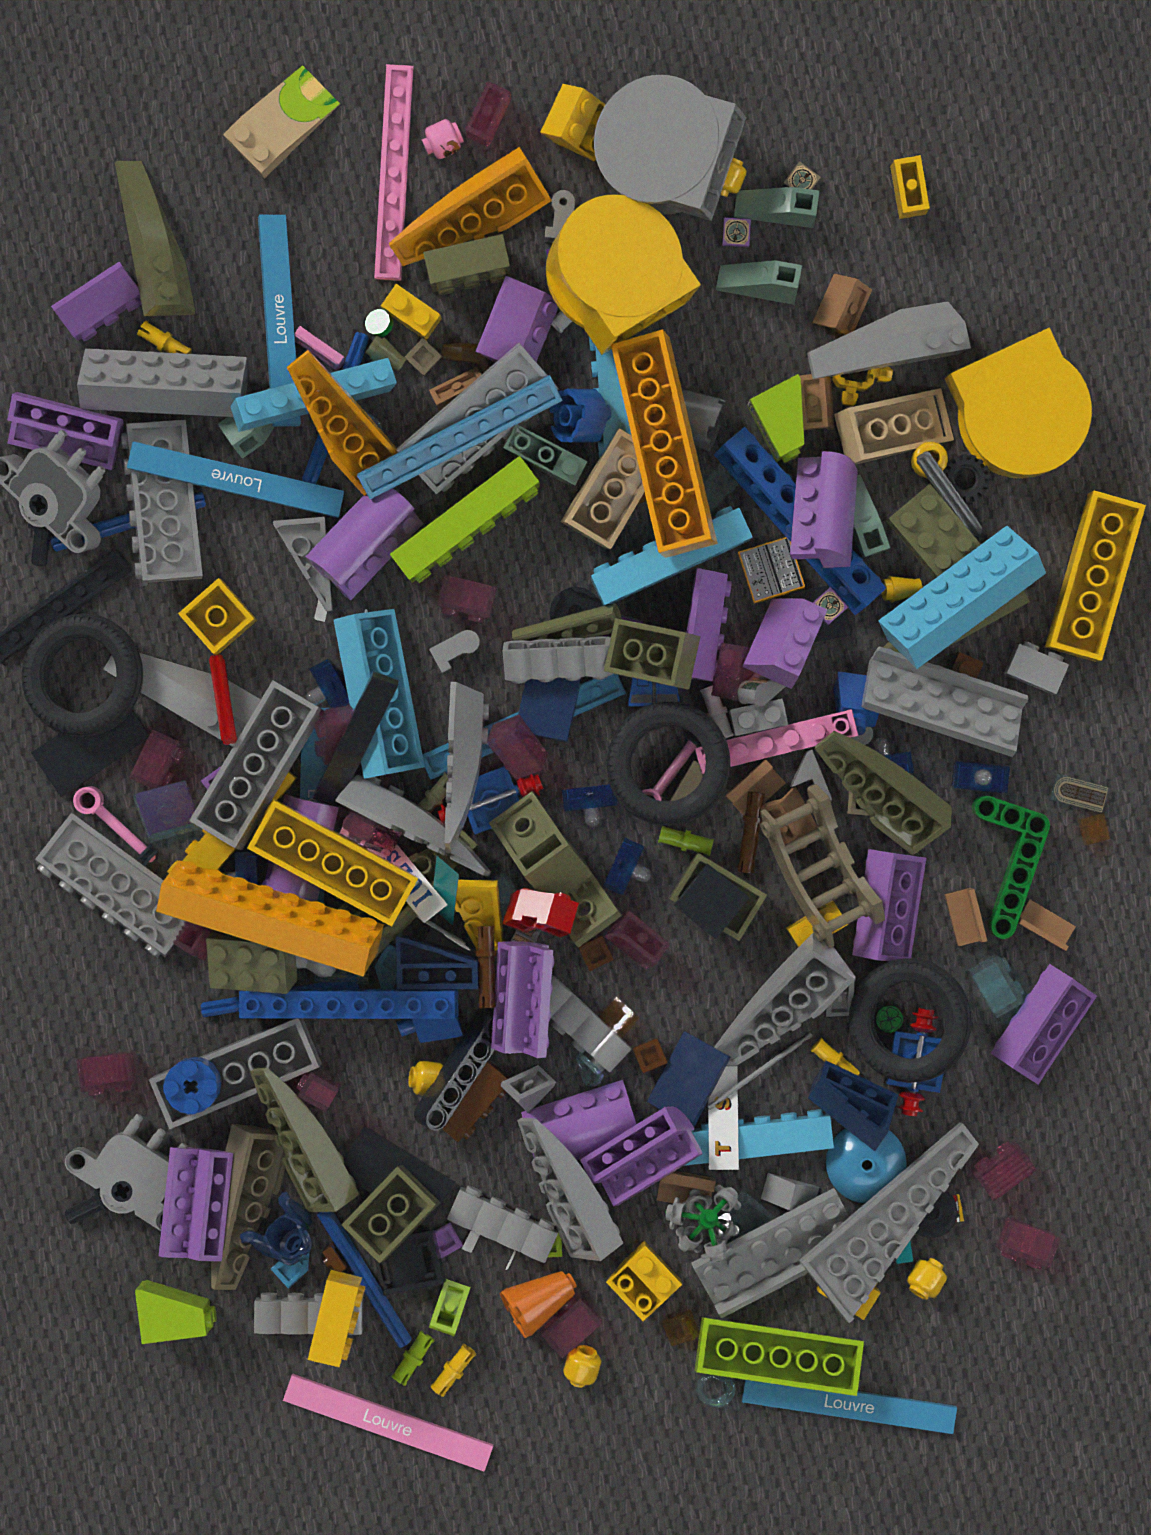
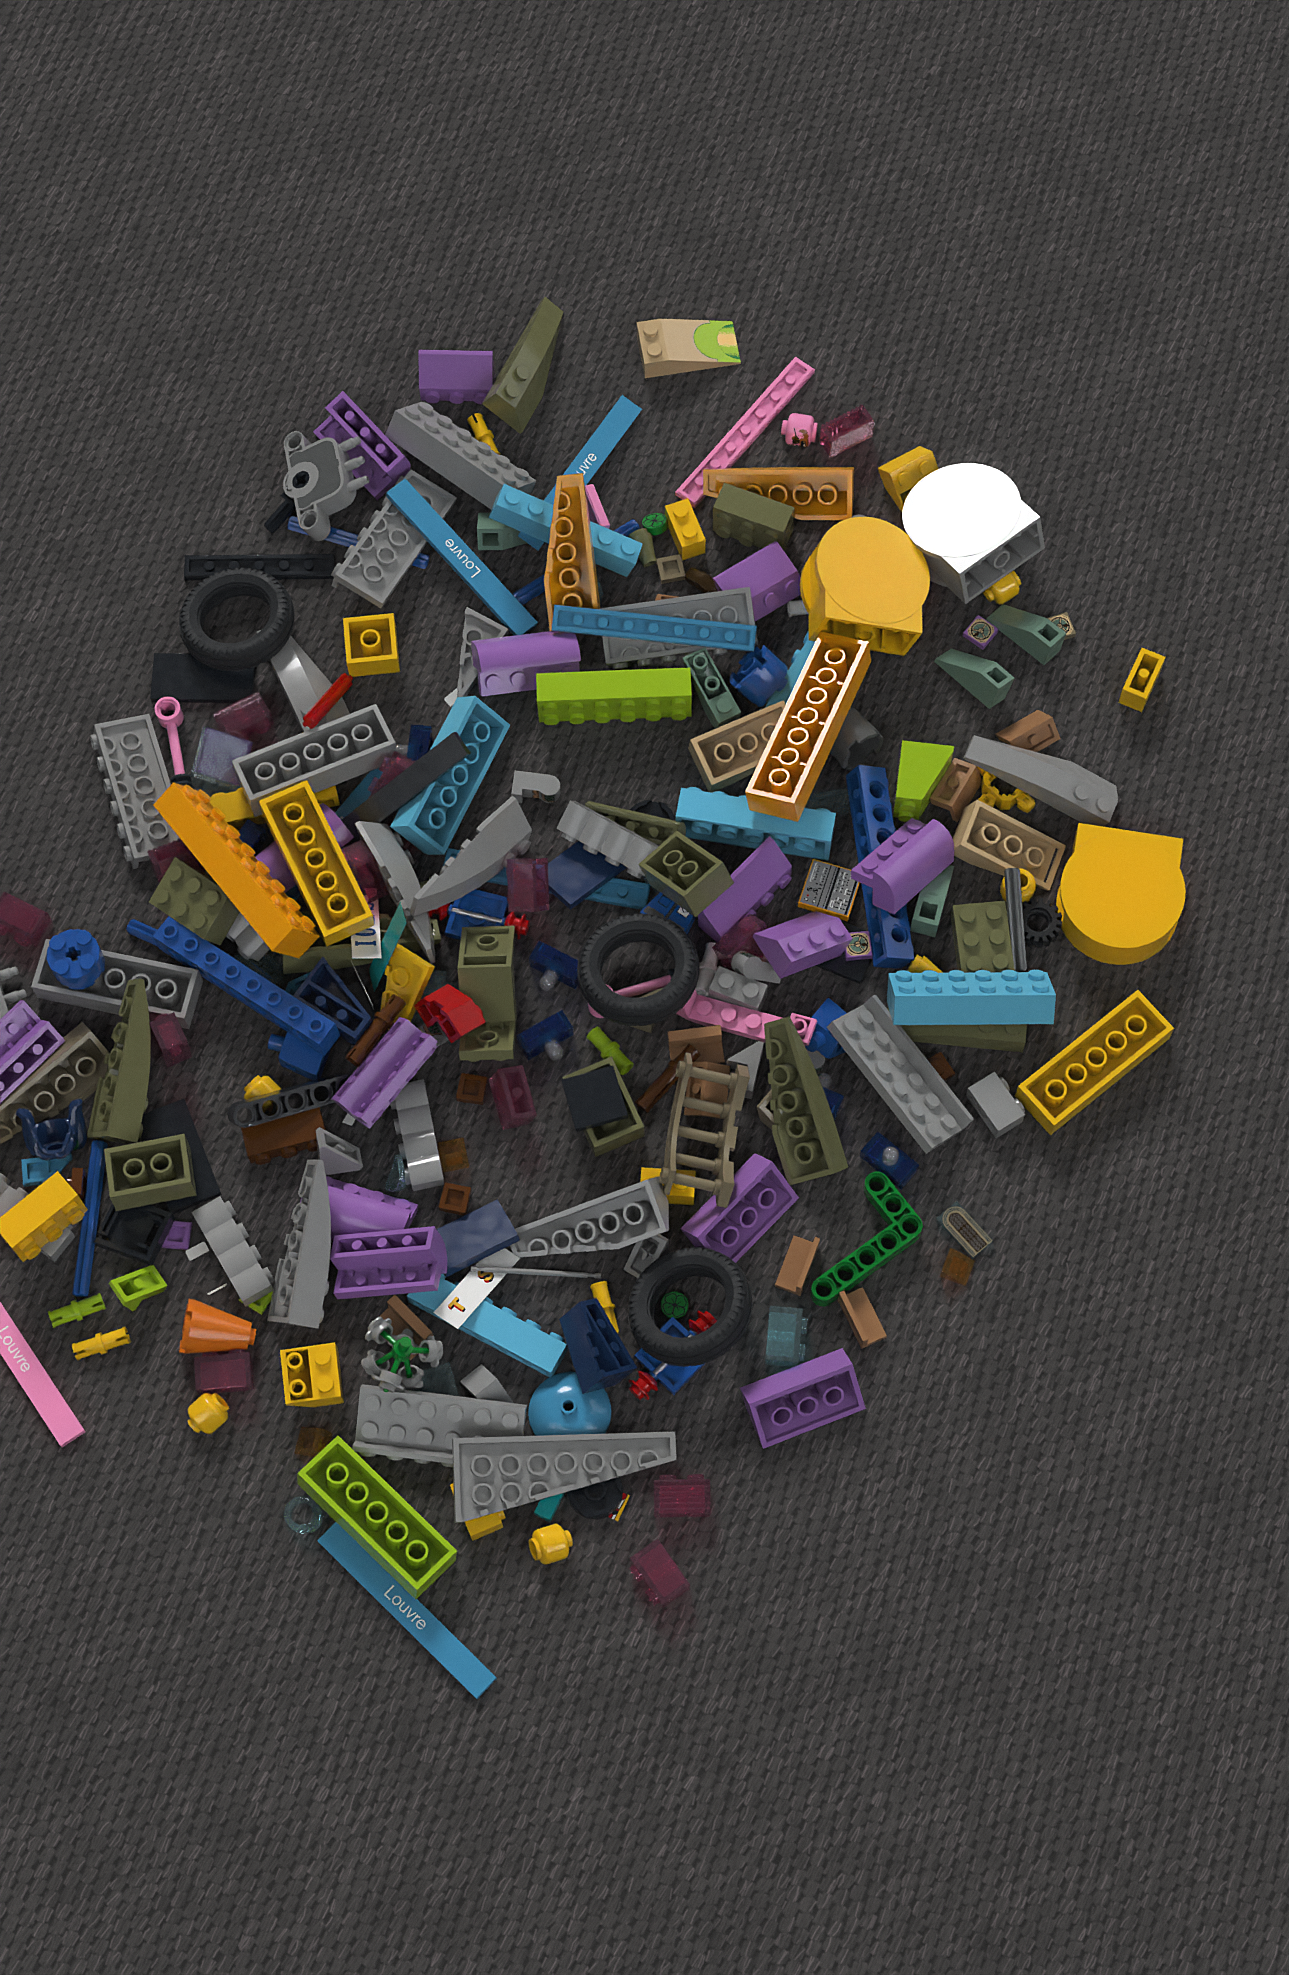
camera: 40 degrees right, 20 degrees down
(467, 598) = (572, 755): clear pink brick -> none

